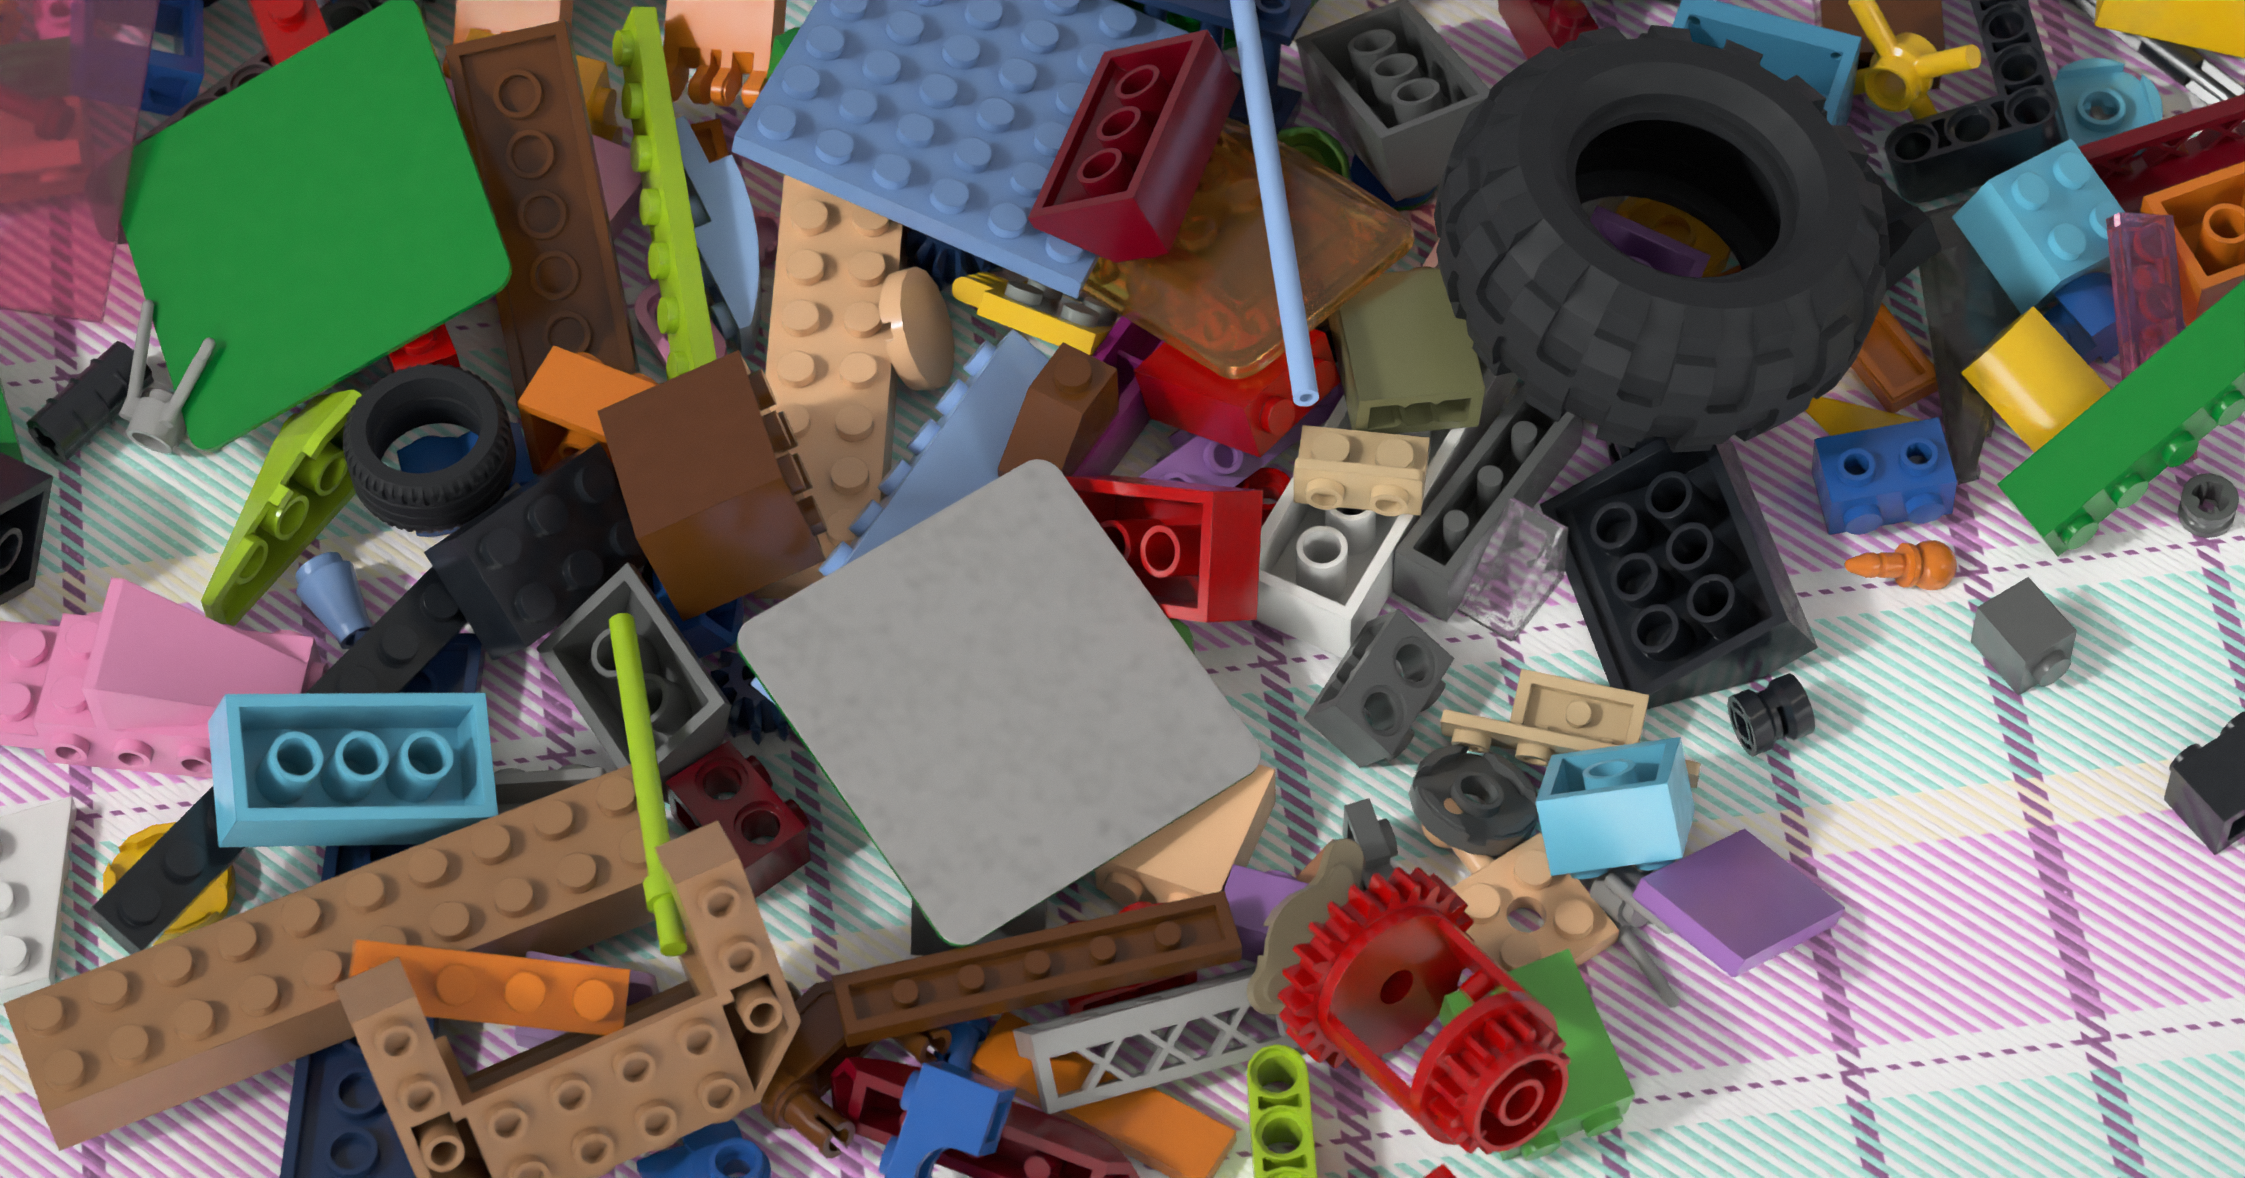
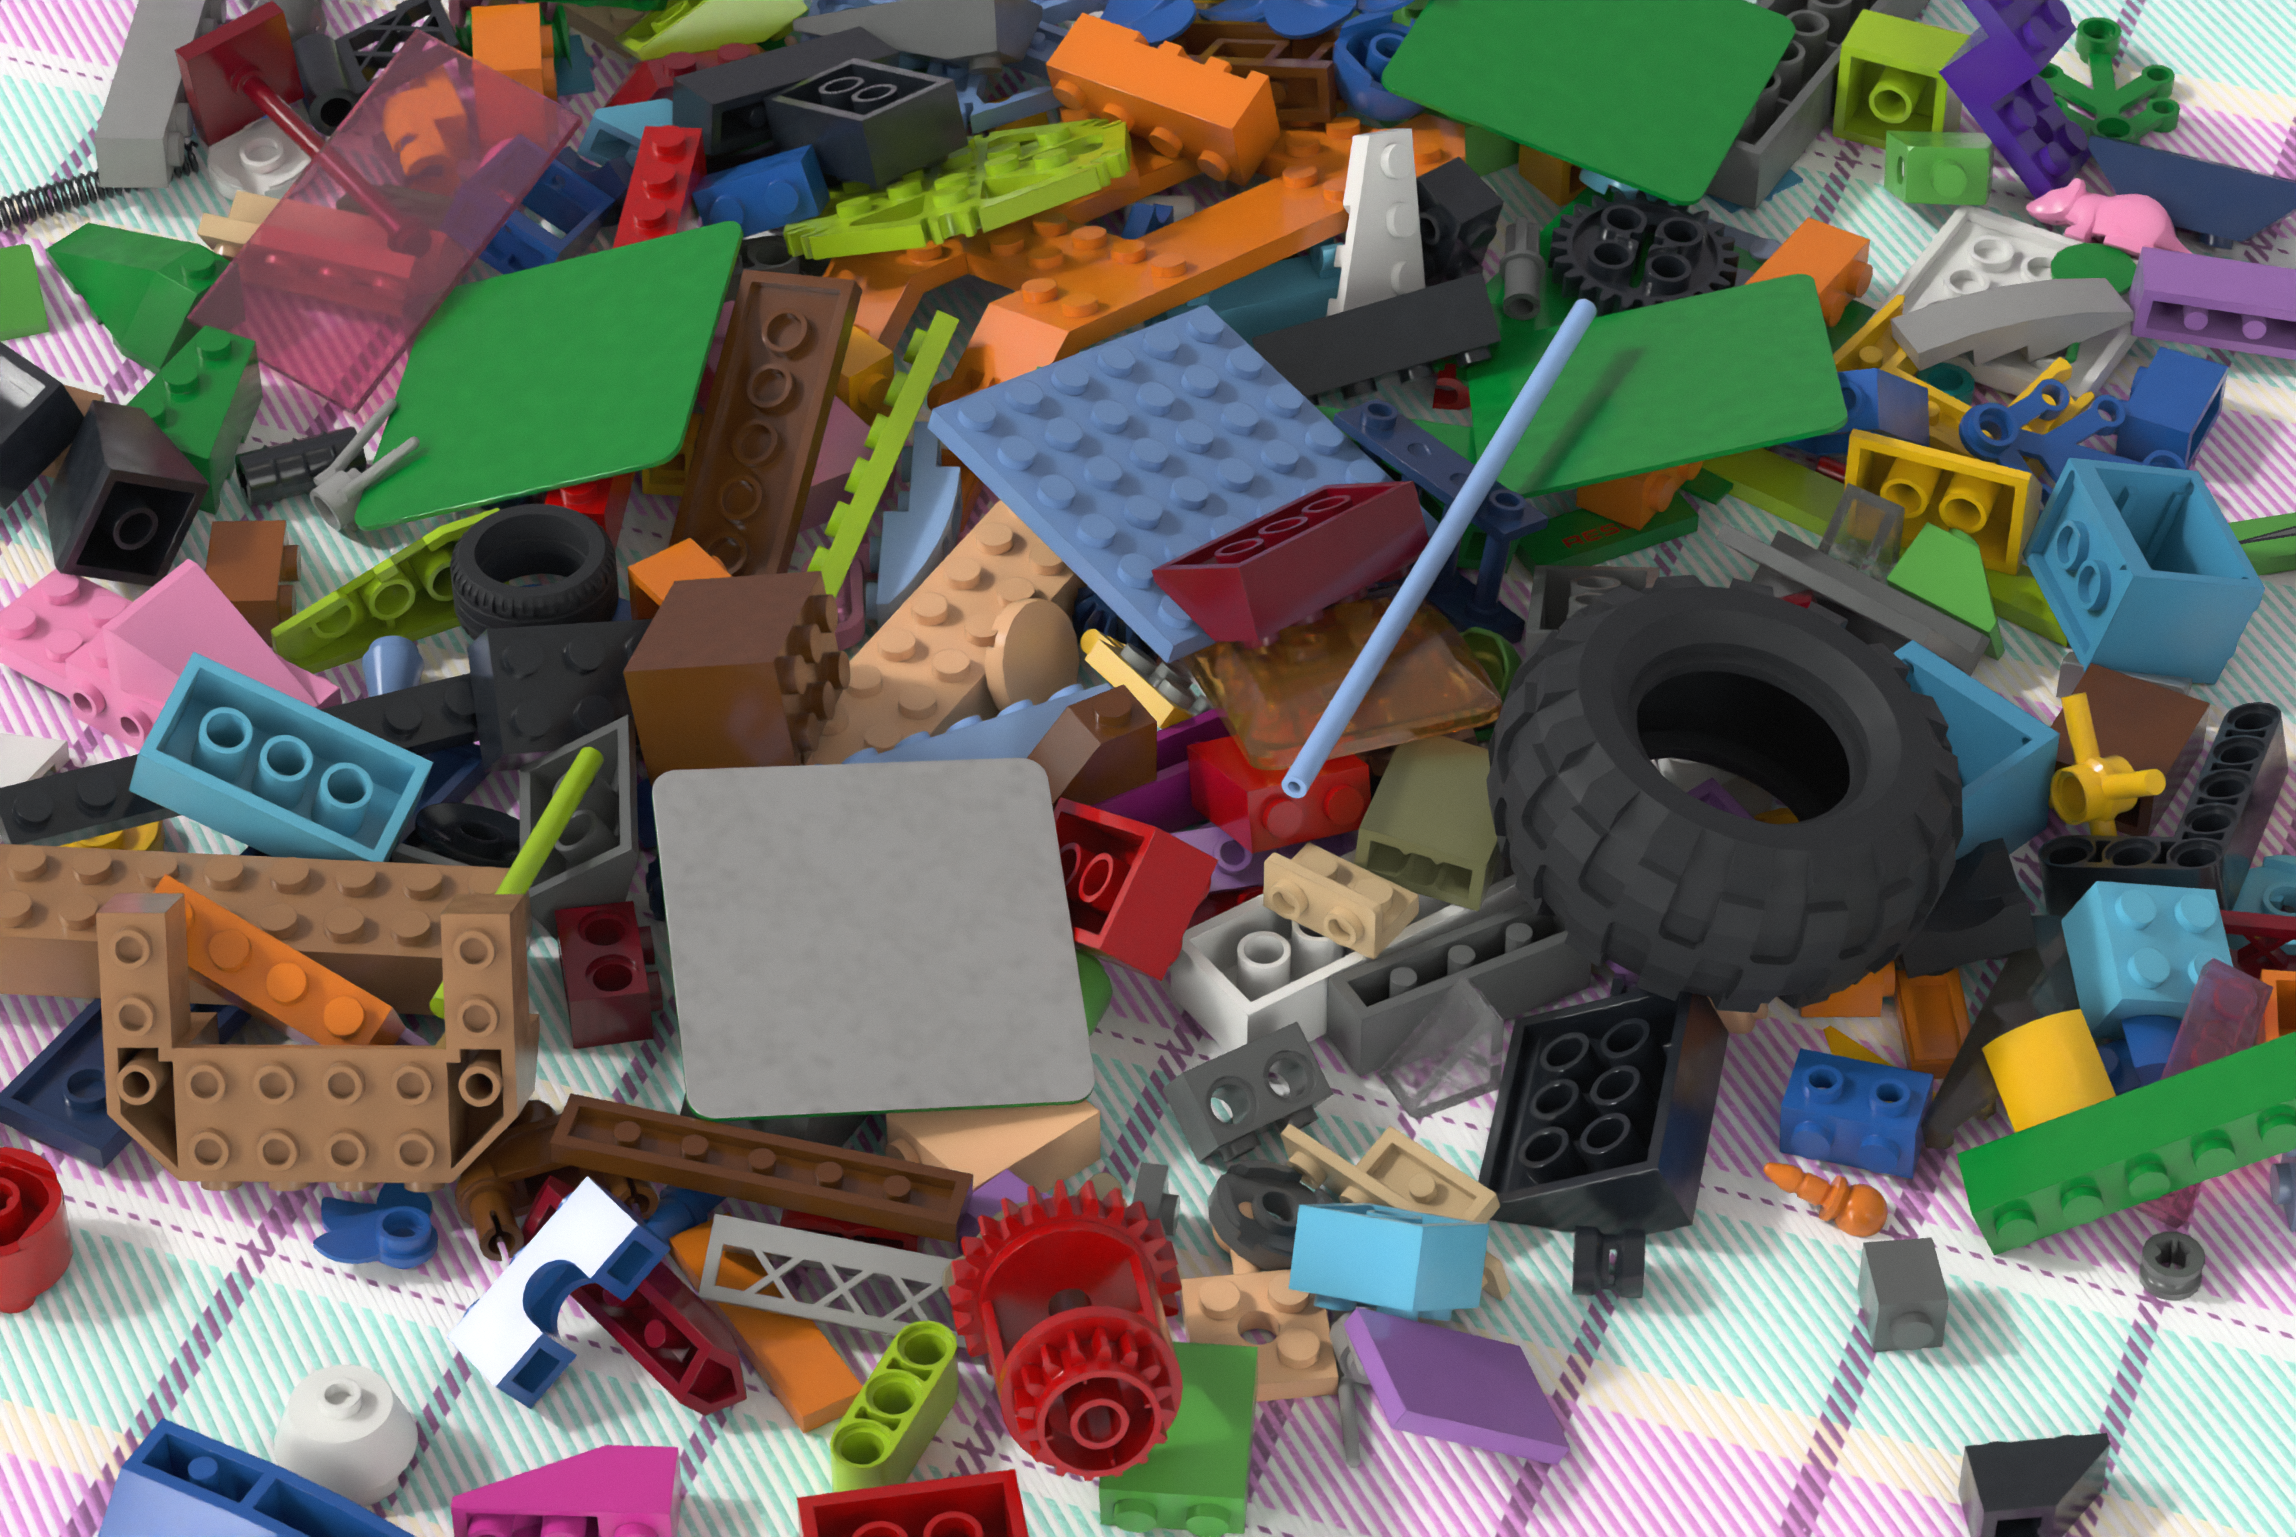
camera: 25 degrees right, 15 degrees down
(126, 539) = (255, 570): none -> dark orange brick
(536, 729) = (470, 833): none -> black dish

